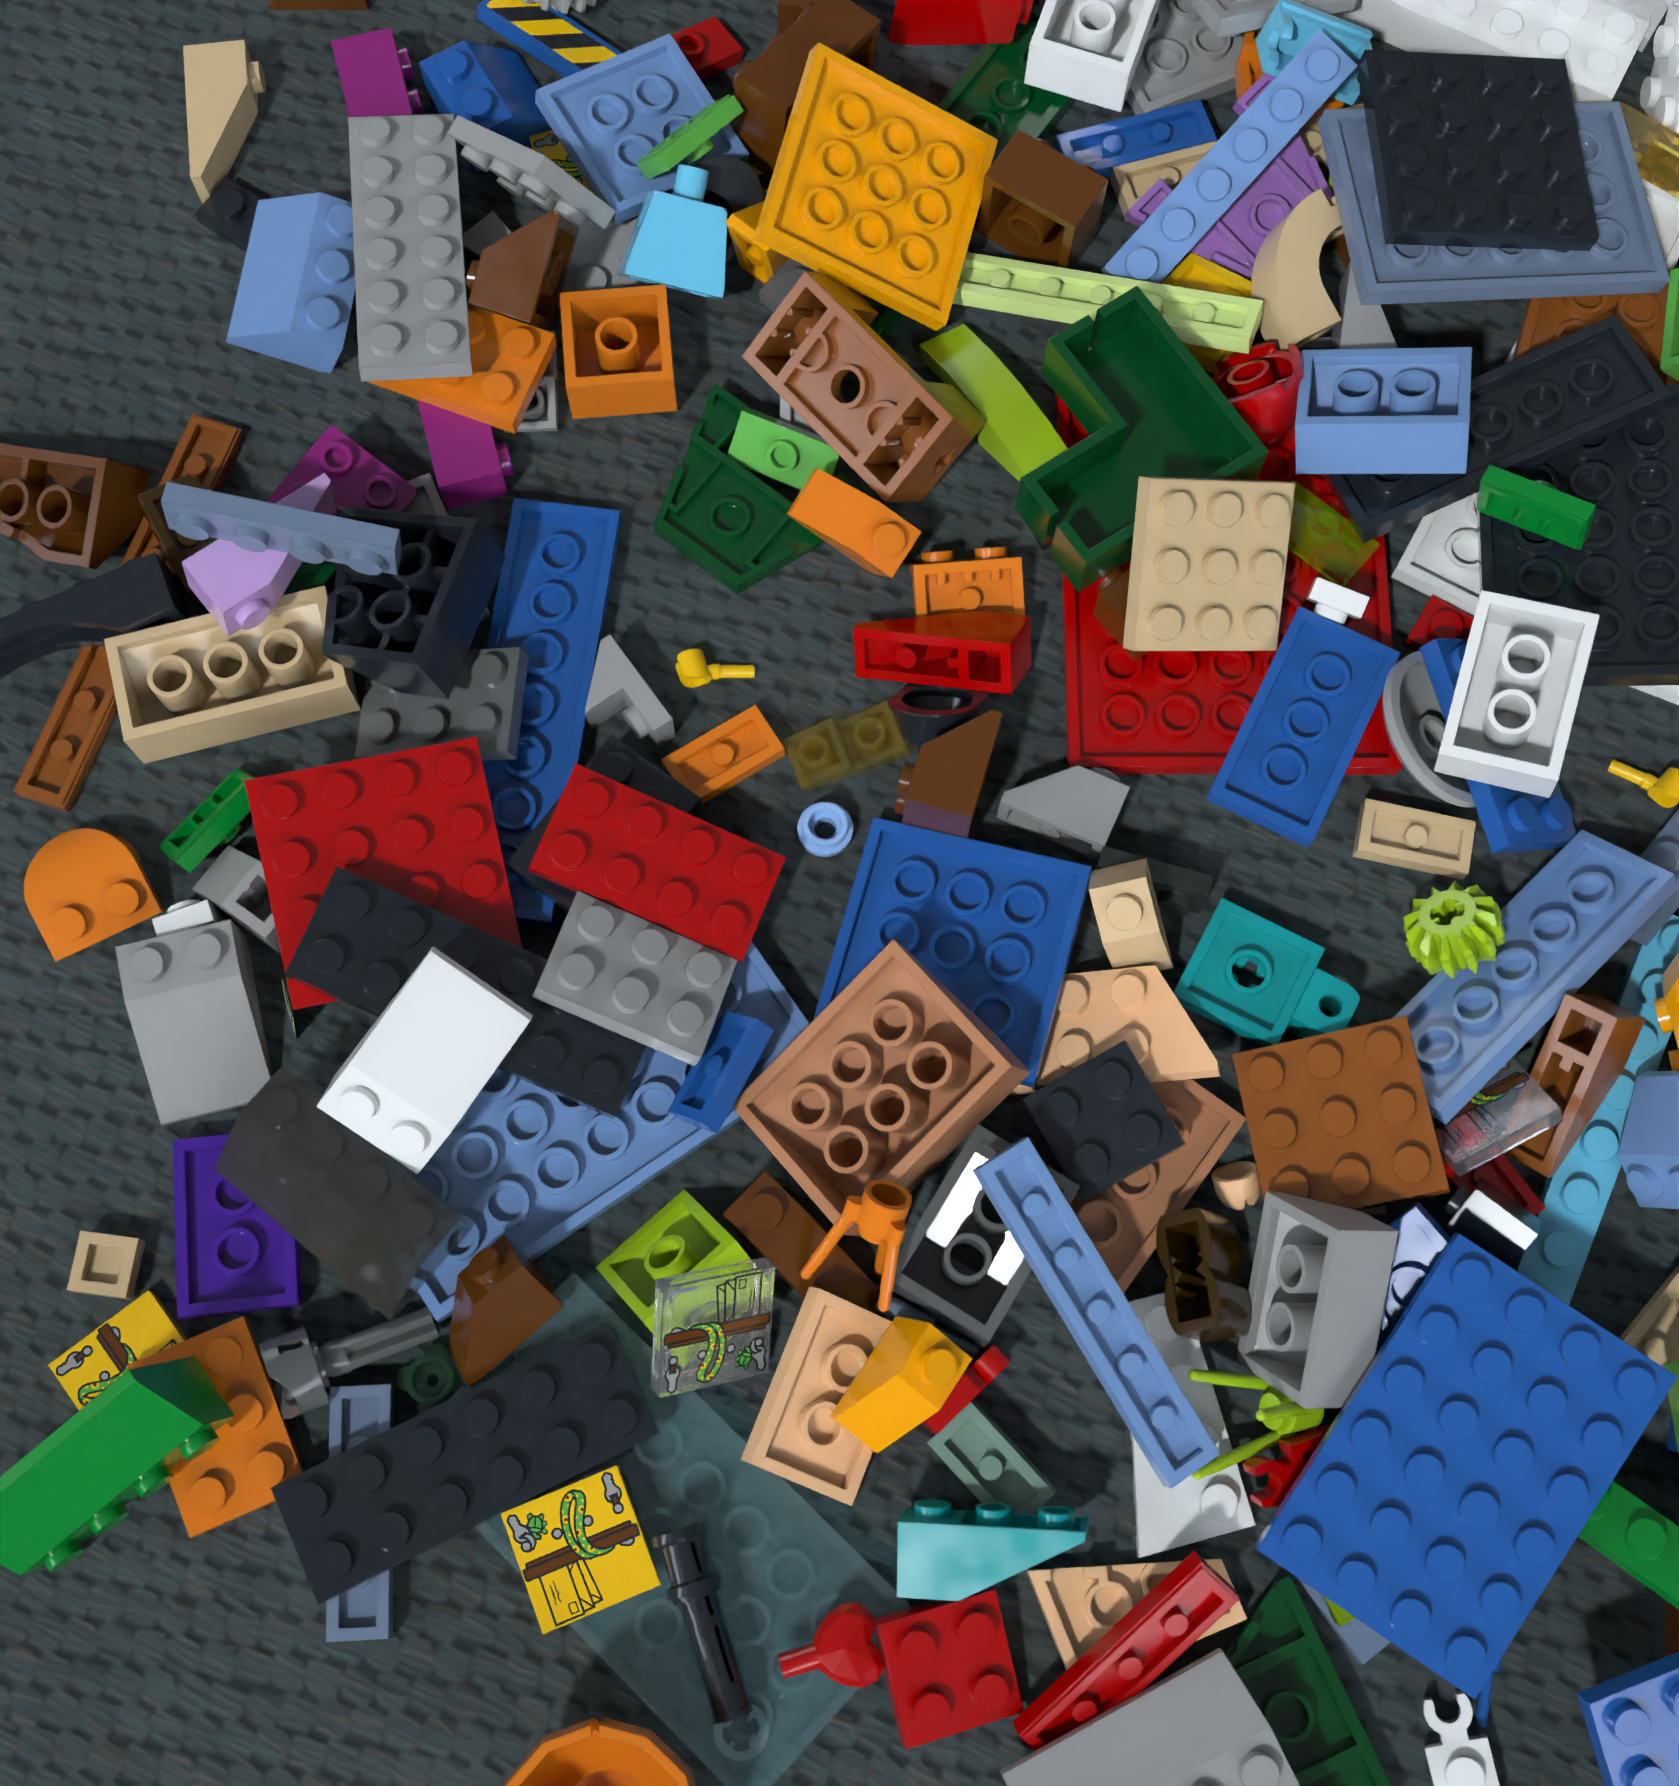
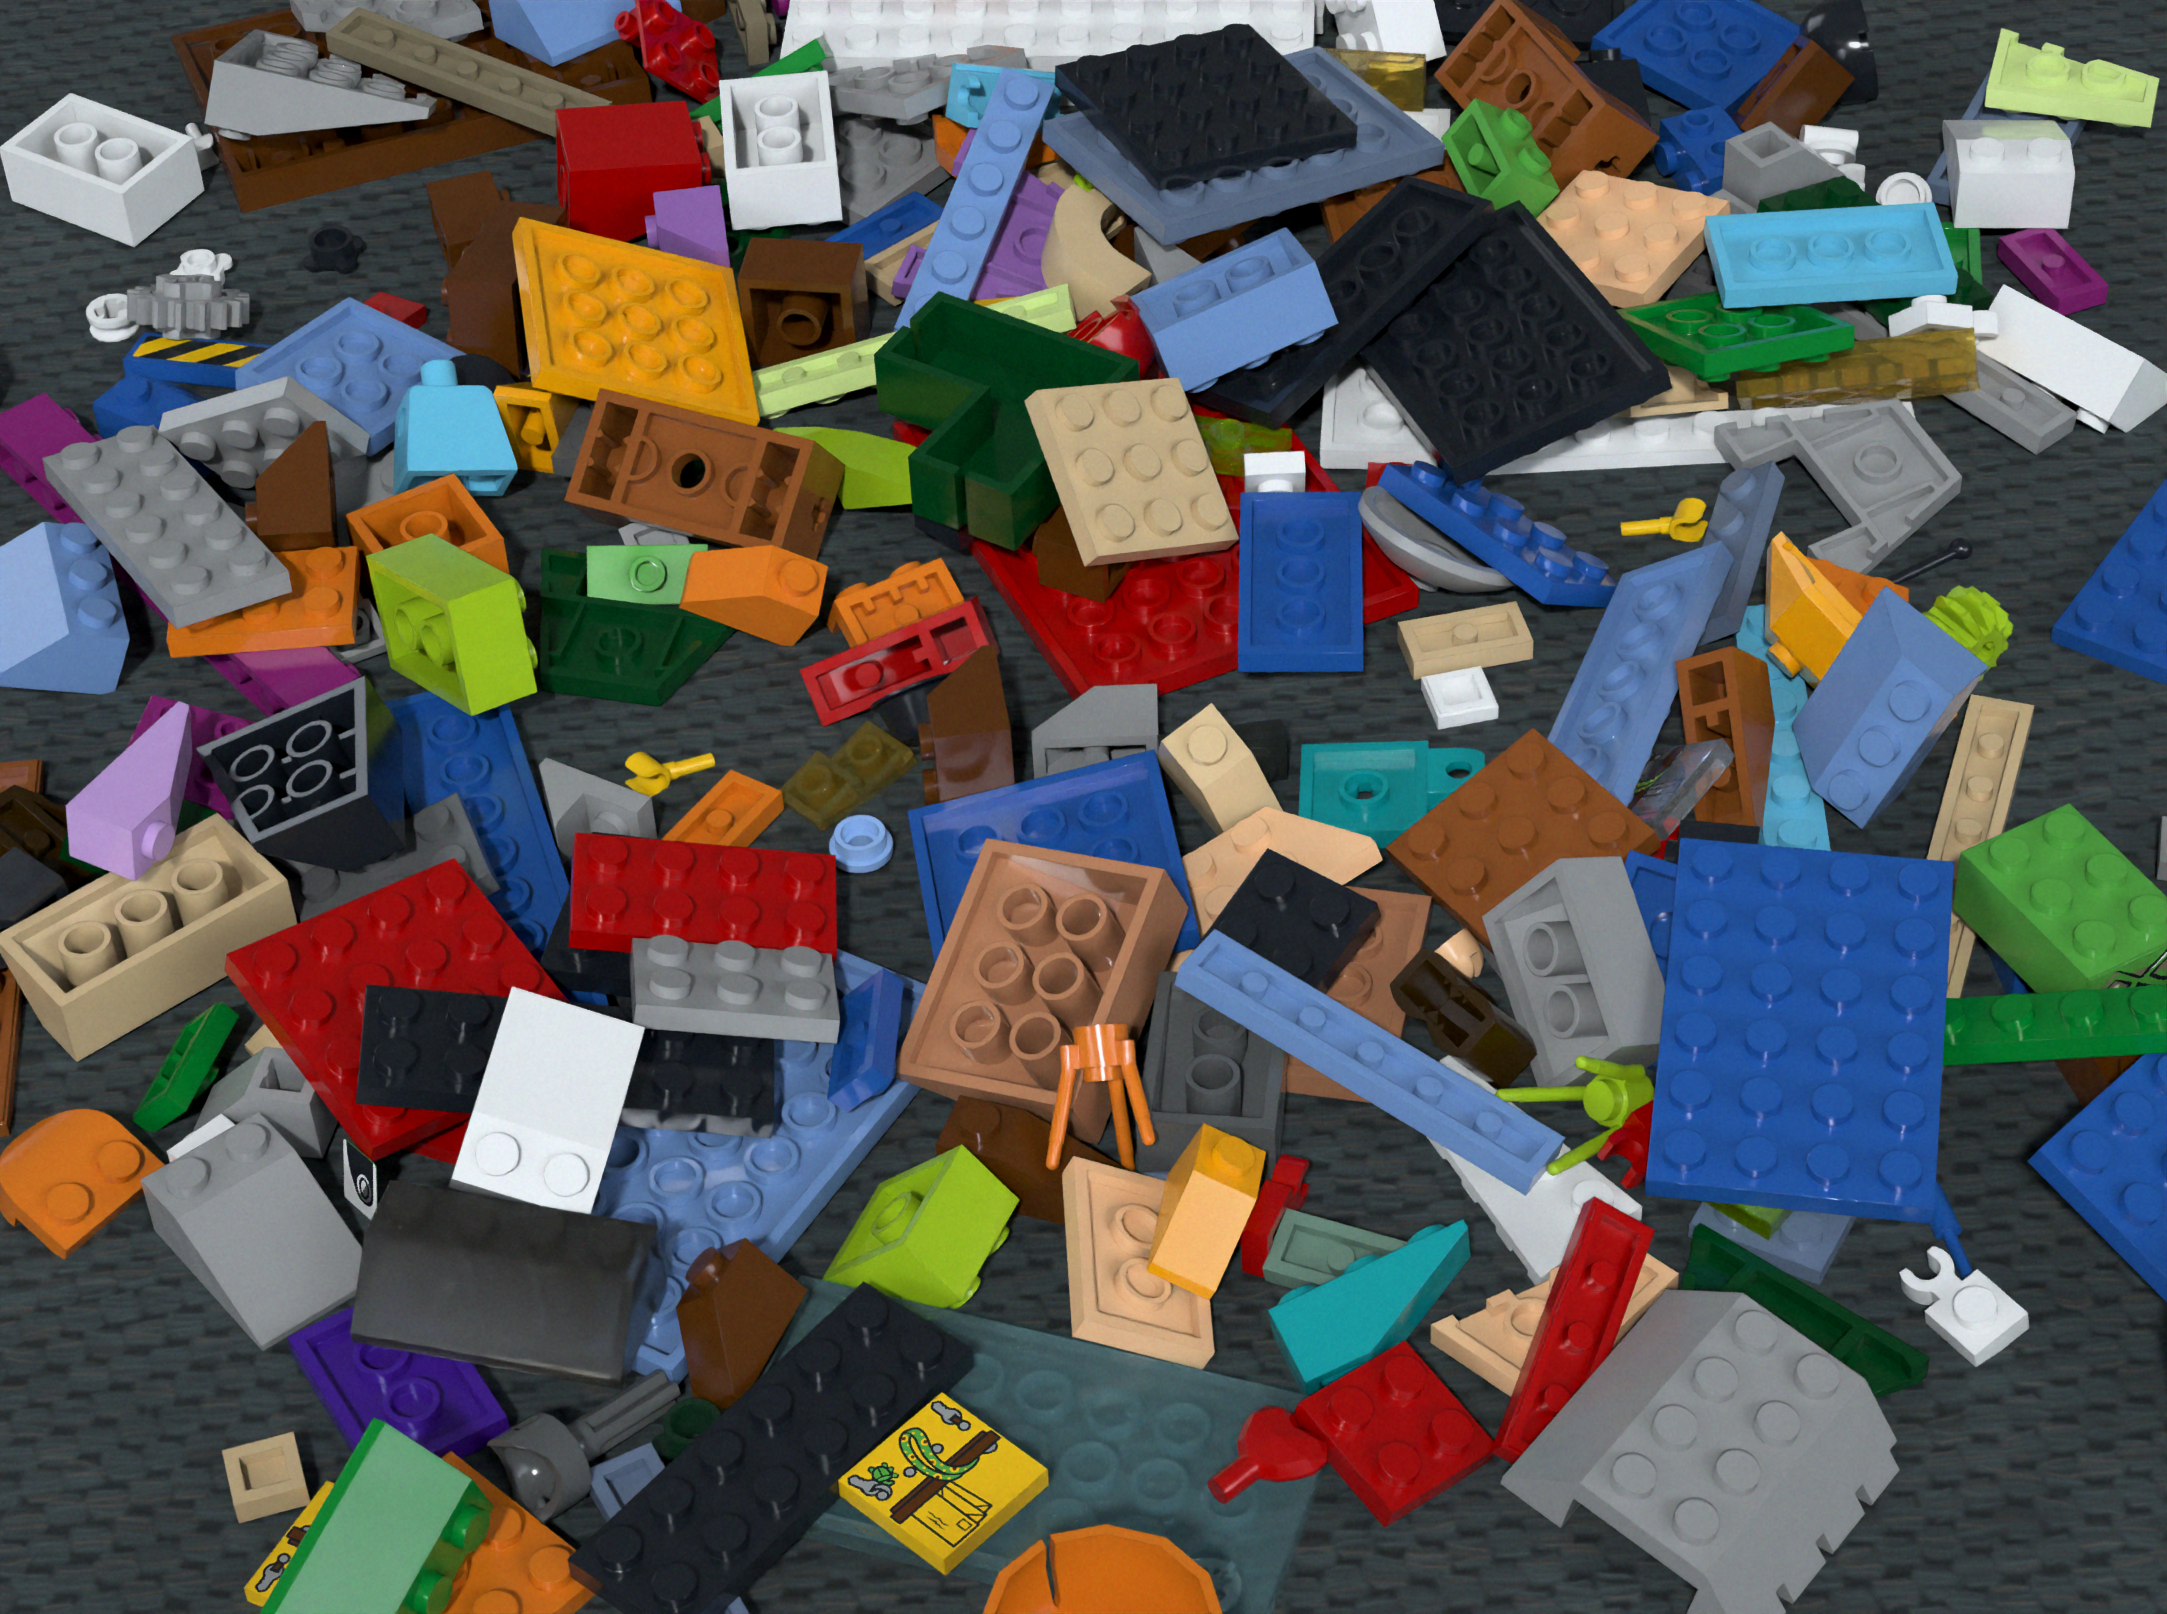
camera: 20 degrees left, 30 degrees down
(282, 528) = (165, 735): sand blue plate -> none
(592, 462) = (453, 623): none -> lime brick
(690, 139) = (419, 350): bright green plate -> none
(695, 1591) = (1088, 1459): black pin -> none
(712, 1326) = (978, 1238): clear tile -> none
(984, 78) = (689, 224): none -> medium lavender slope
(1380, 895) = (1459, 697): none -> white tile
(1454, 929) = (1544, 679): lime gear -> none
(1516, 693) = (1483, 448): white brick -> none
(1535, 507) = (1419, 328): green plate -> none

